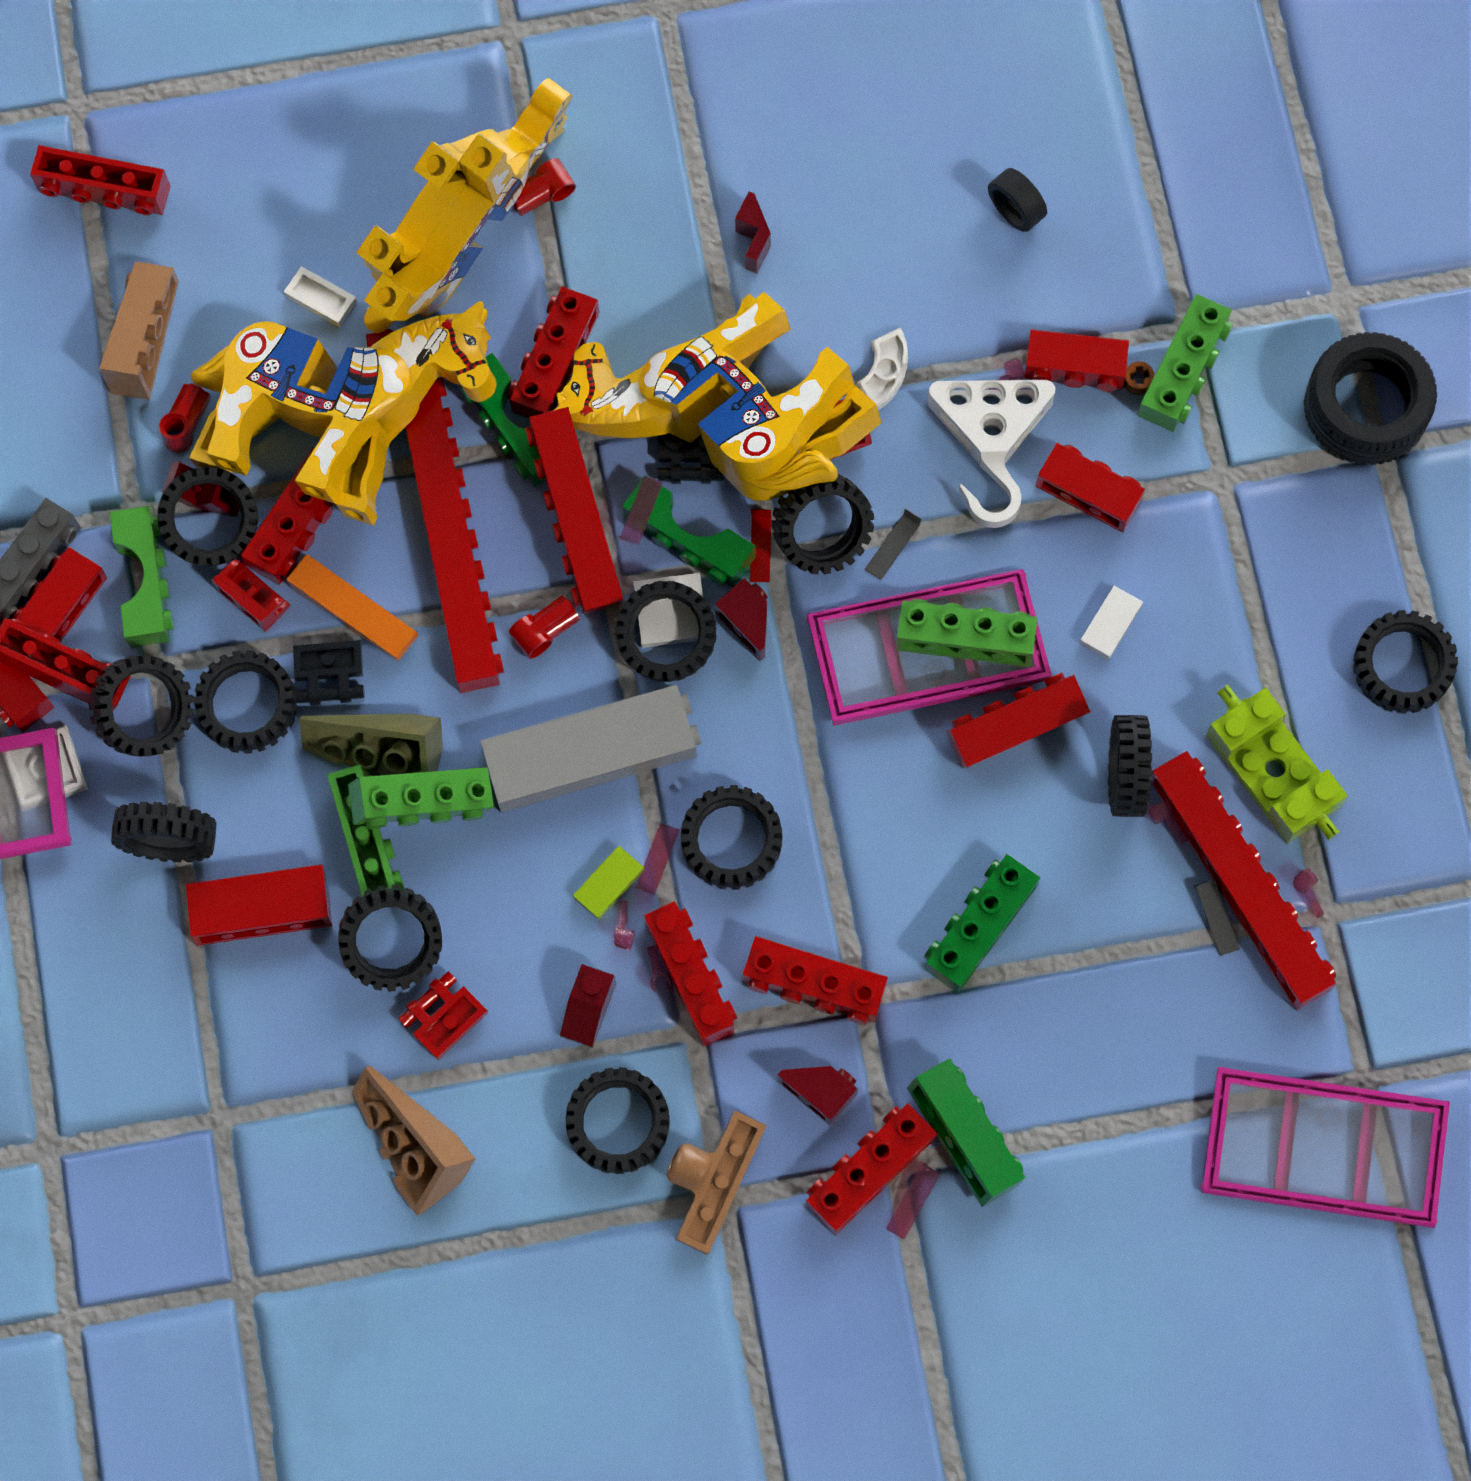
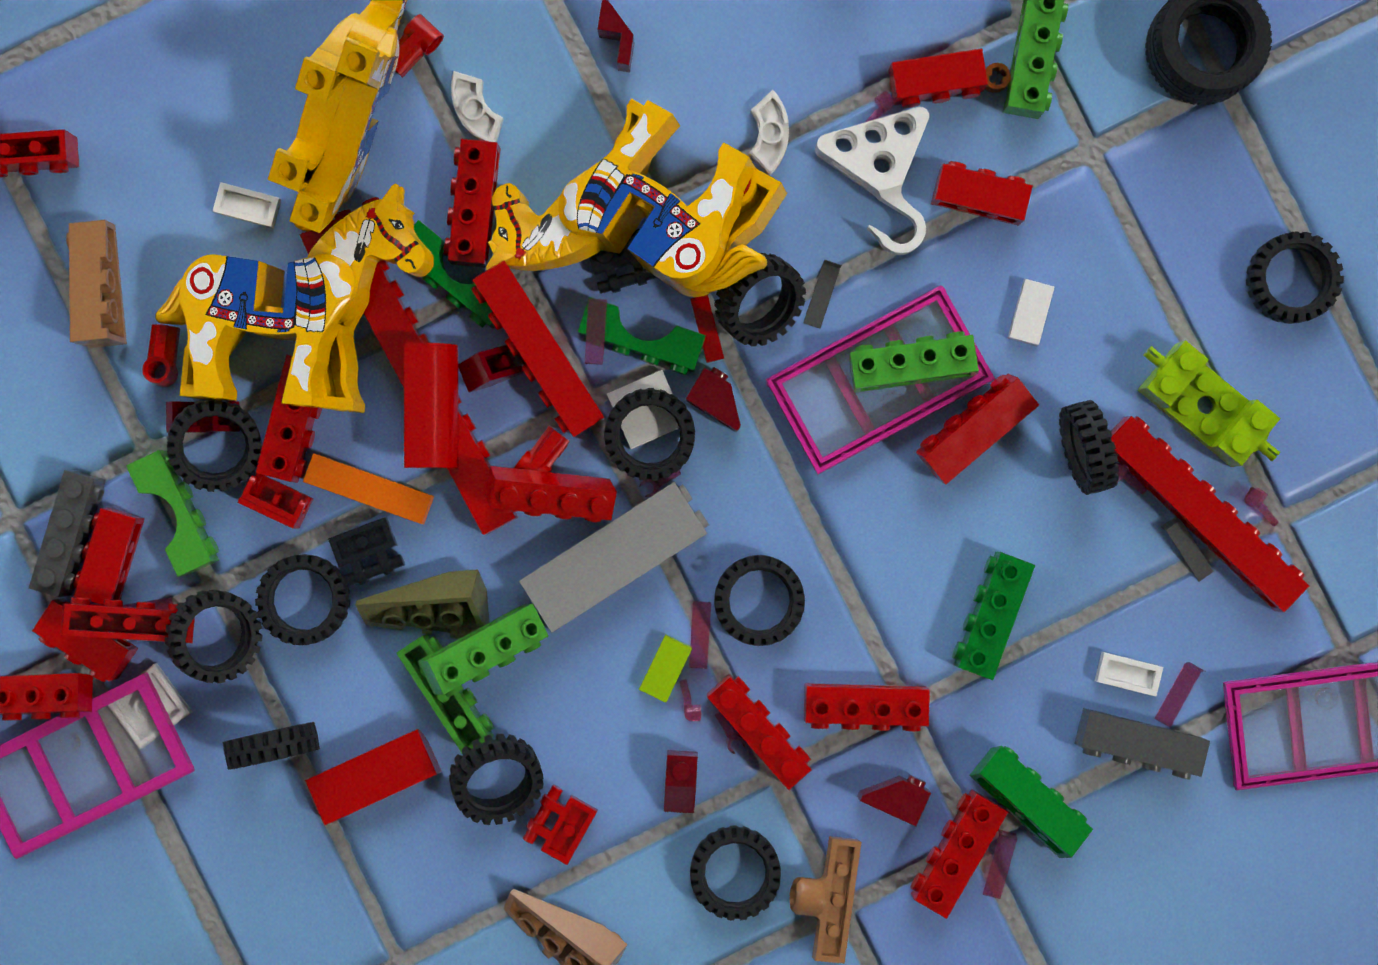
camera: 20 degrees left, 15 degrees up
(445, 535) = (430, 405): none -> red brick
(520, 520) = (490, 368): none -> dark red slope
(542, 657) = (550, 493): none -> red brick
(582, 263) = (472, 109): none -> white tile
(650, 682) = (659, 483): none -> clear pink hand
(1106, 1103) = (1143, 743): none -> dark grey brick
(1115, 1031) = (1128, 674): none -> white tile
(1165, 1069) = (1178, 694): none -> clear pink piece

